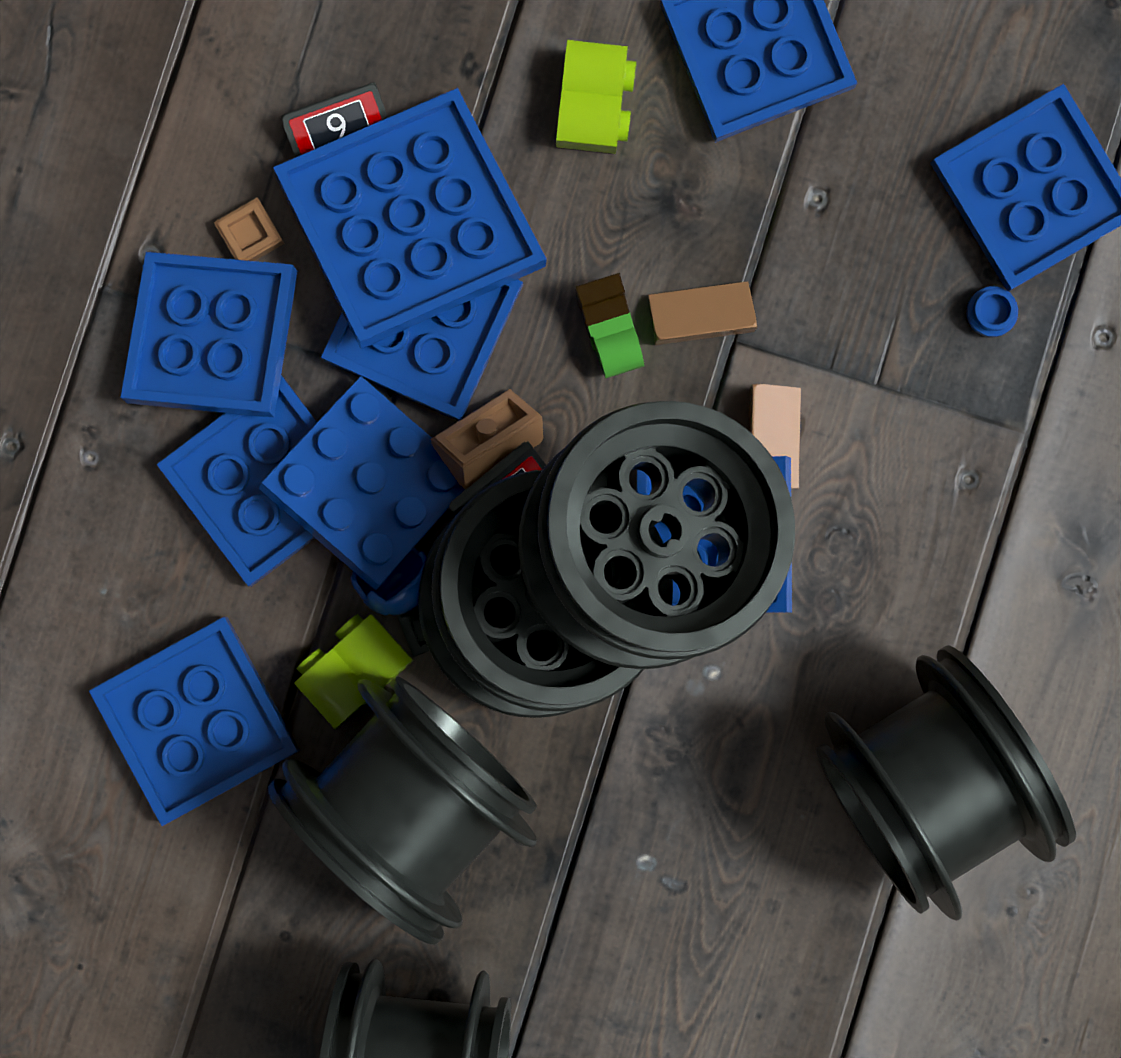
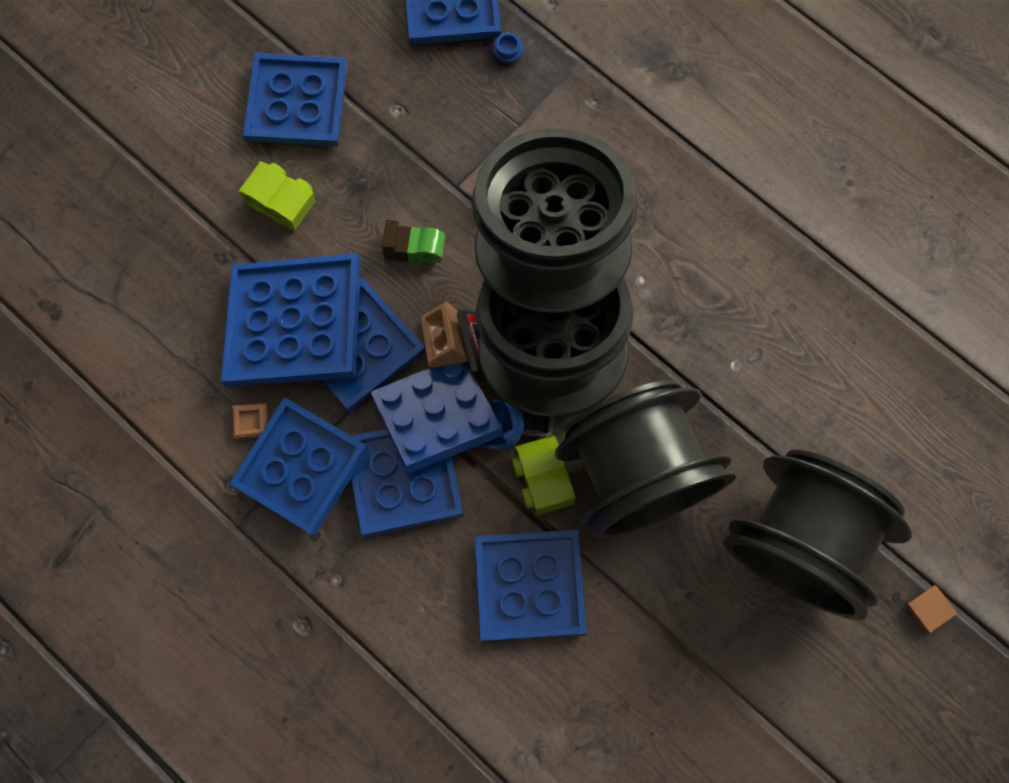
camera: 60 degrees left, 15 degrees down
(333, 118) = (210, 342): slope -> none
(702, 313) = (431, 194): medium nougat slope -> none
(945, 783) = (764, 161): pearl dark grey wheel -> none

